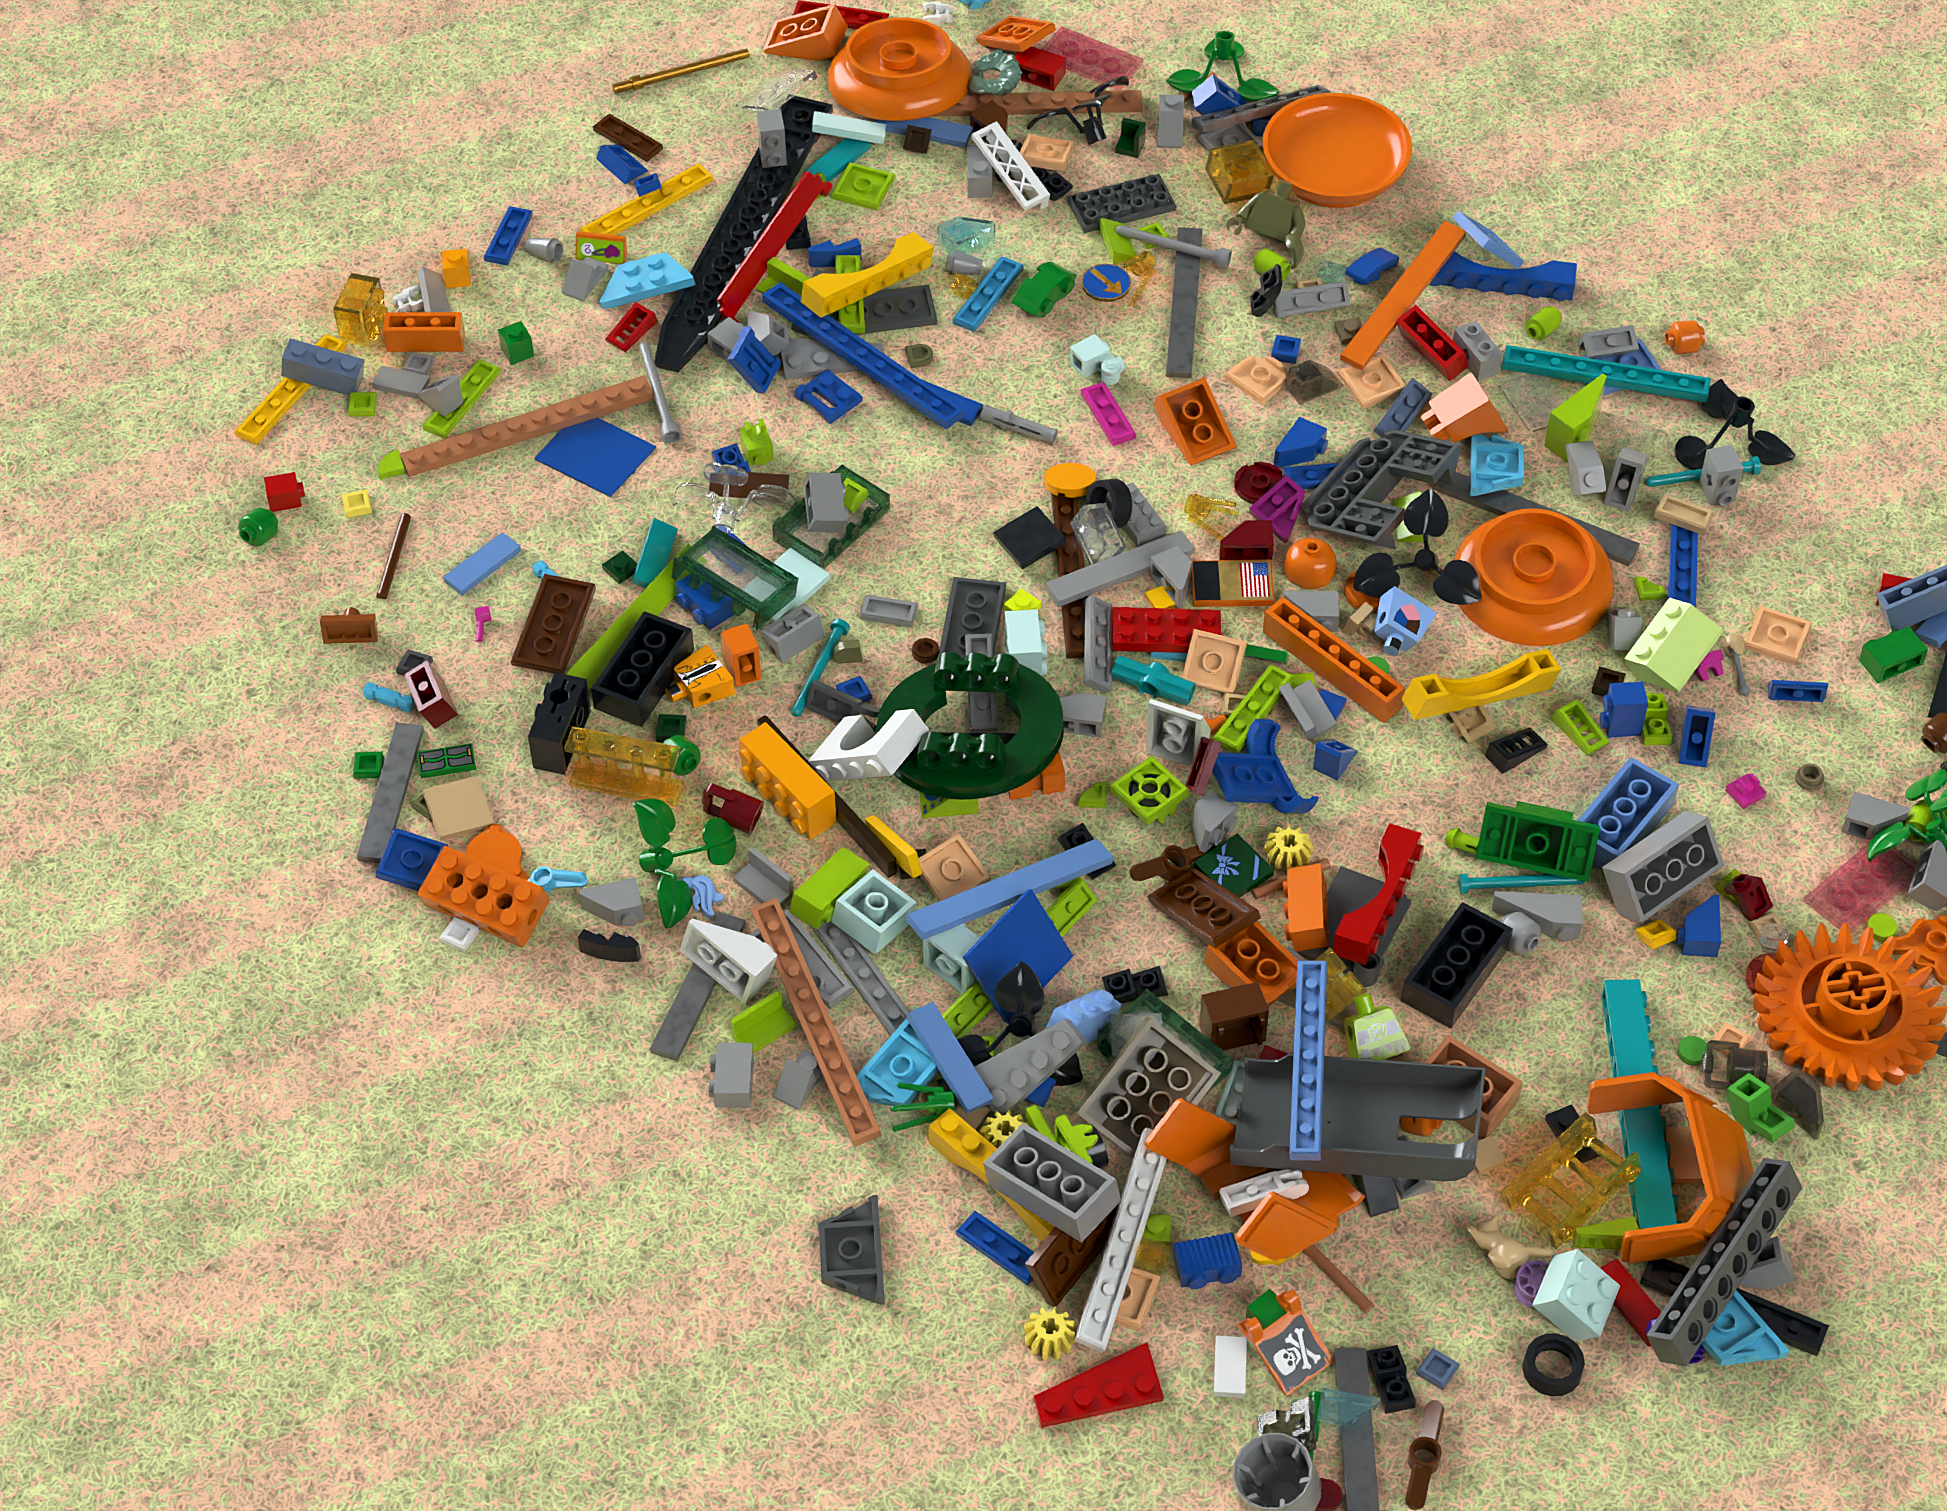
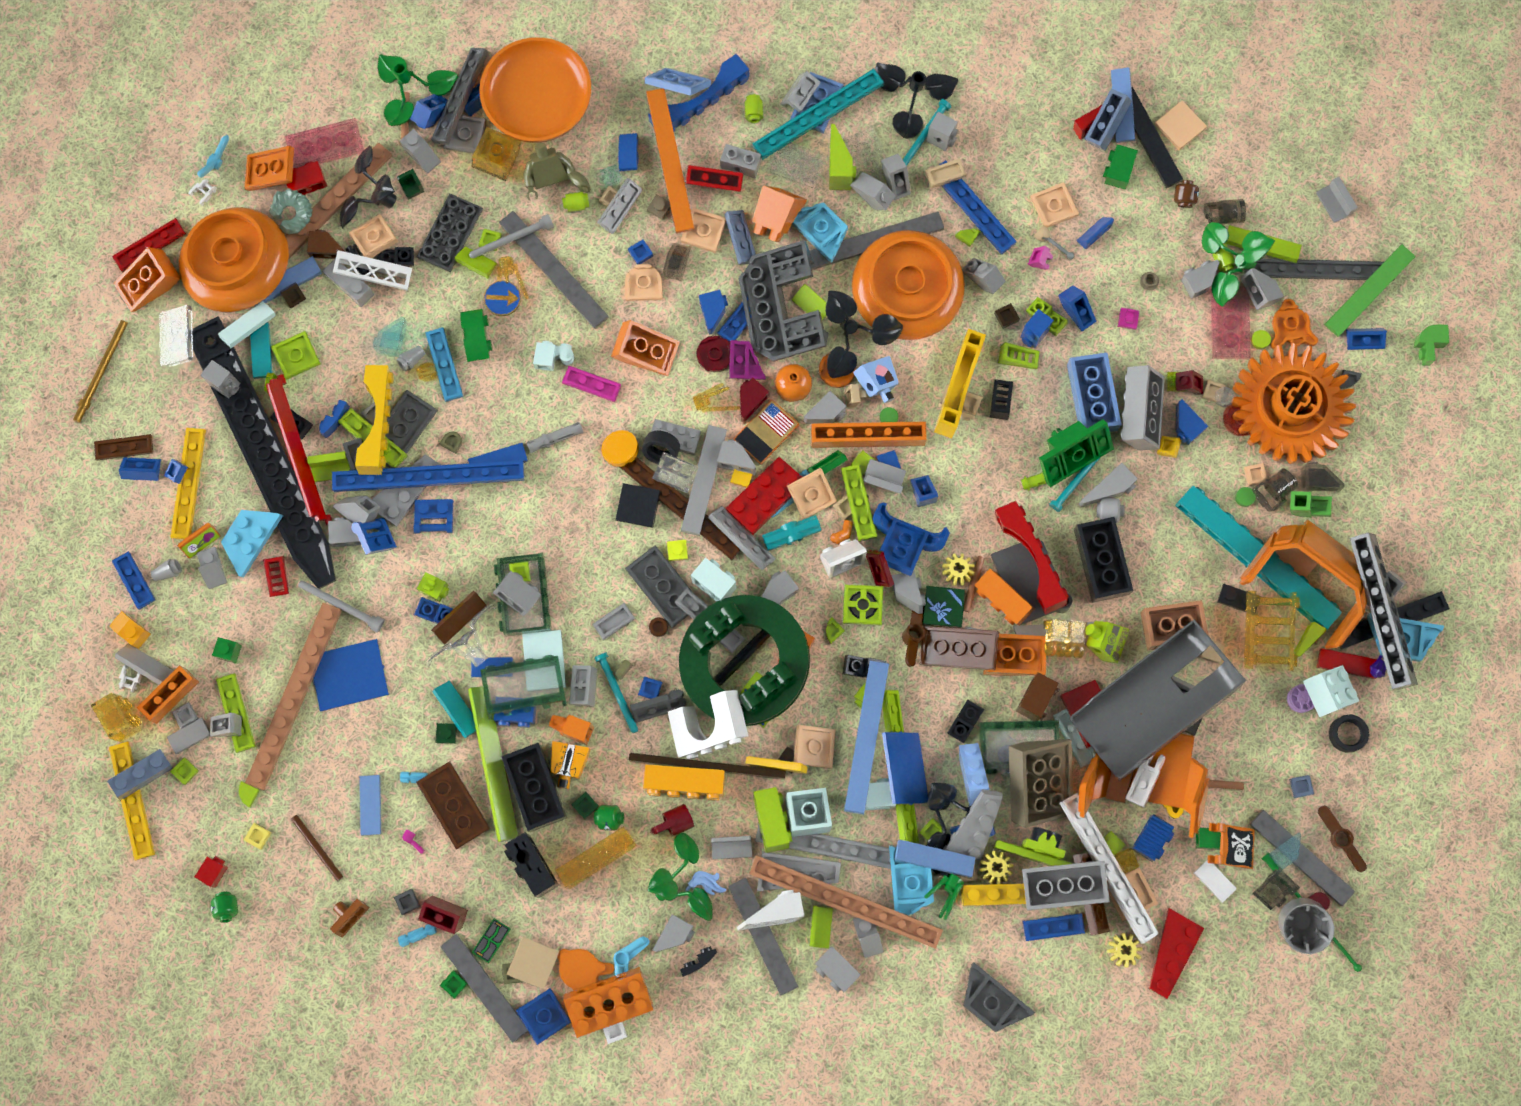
camera: 45 degrees left, 25 degrees up
(1270, 288) = (597, 226): black slope -> none
(1308, 1061) = (1110, 696): medium blue tile -> none
(1391, 1379) = (1288, 813): black slope -> none
(1503, 1251) = (1278, 698): tan animal -> none
(1673, 645) = (1023, 266): yellowish green slope -> none
(1685, 337) = (833, 50): orange head -> none

